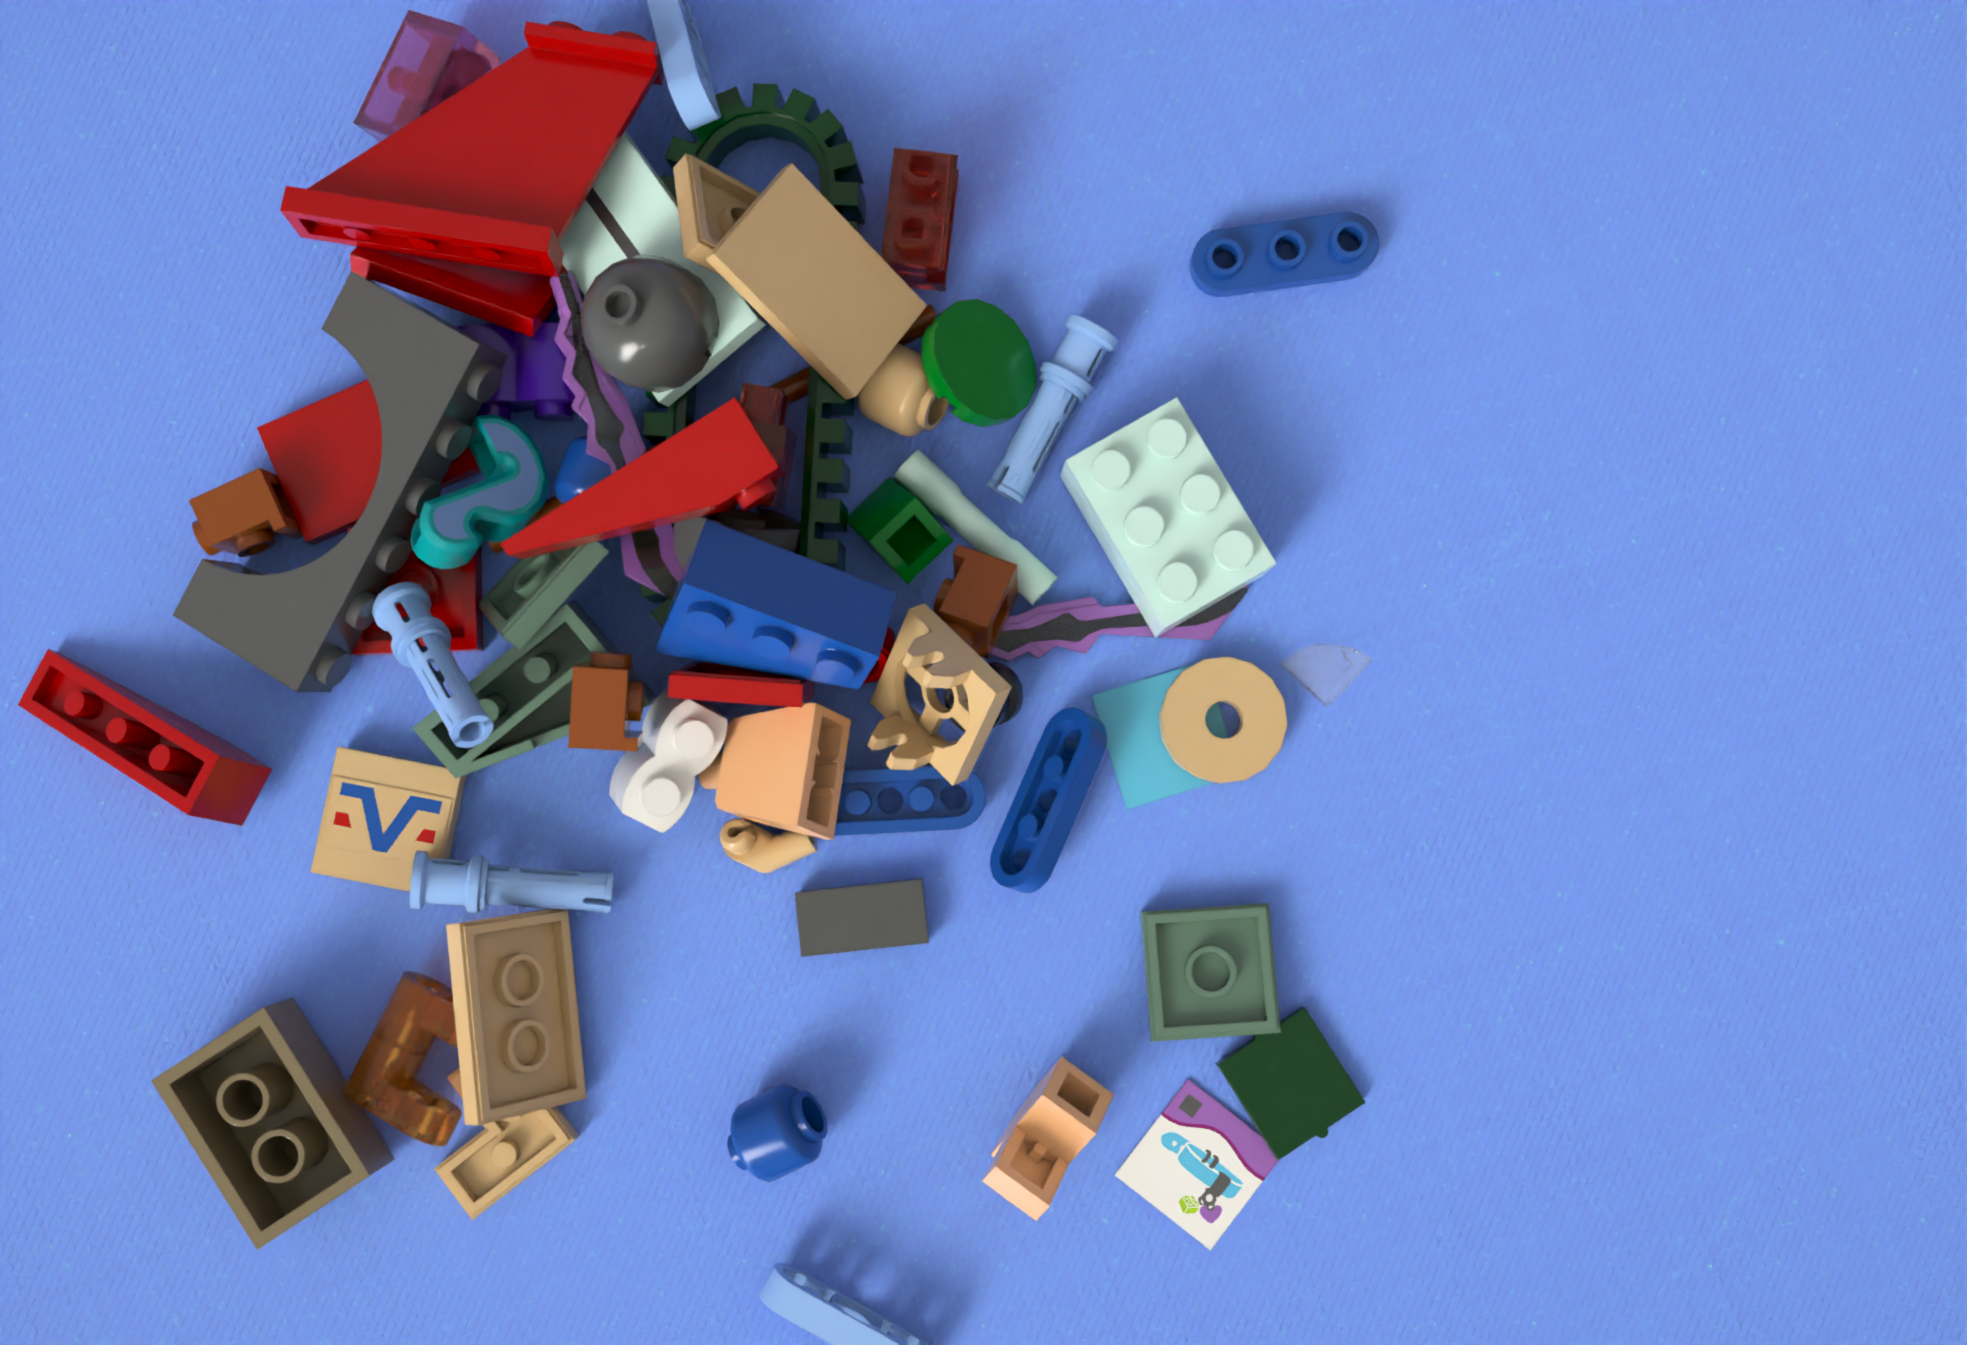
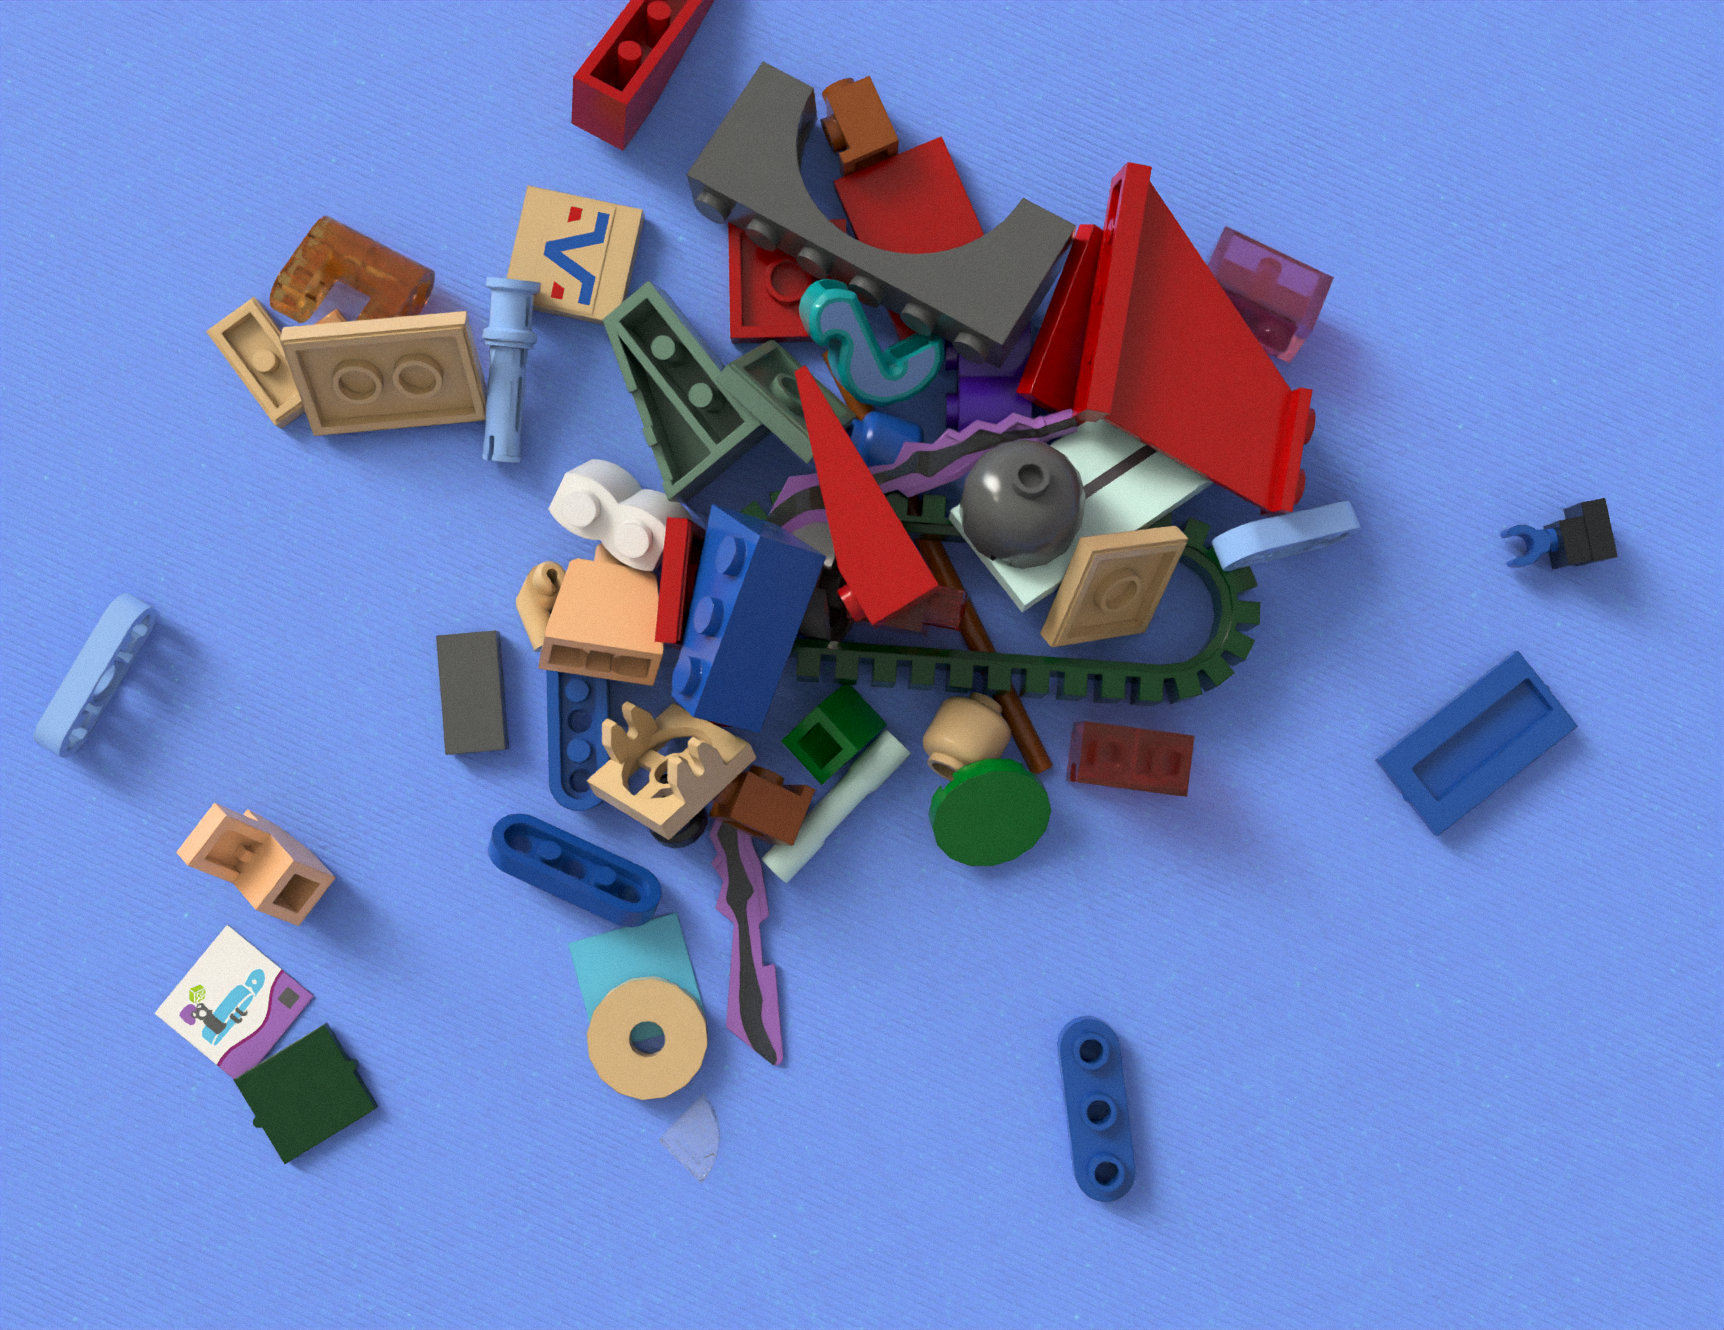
camera: 90 degrees right, 0 degrees up
(272, 1120) = (296, 153): dark tan brick -> none
(462, 712) = (654, 326): light blue pin -> none
(605, 703) = (663, 458): dark orange brick -> none
(777, 1132) = (273, 611): blue head -> none
(817, 281) = (1061, 661): tan tile -> none
(1064, 383) = (970, 892): light blue pin -> none
(1166, 517) = (836, 990): light aqua brick -> none
(1209, 972) = (409, 1019): sand green tile -> none

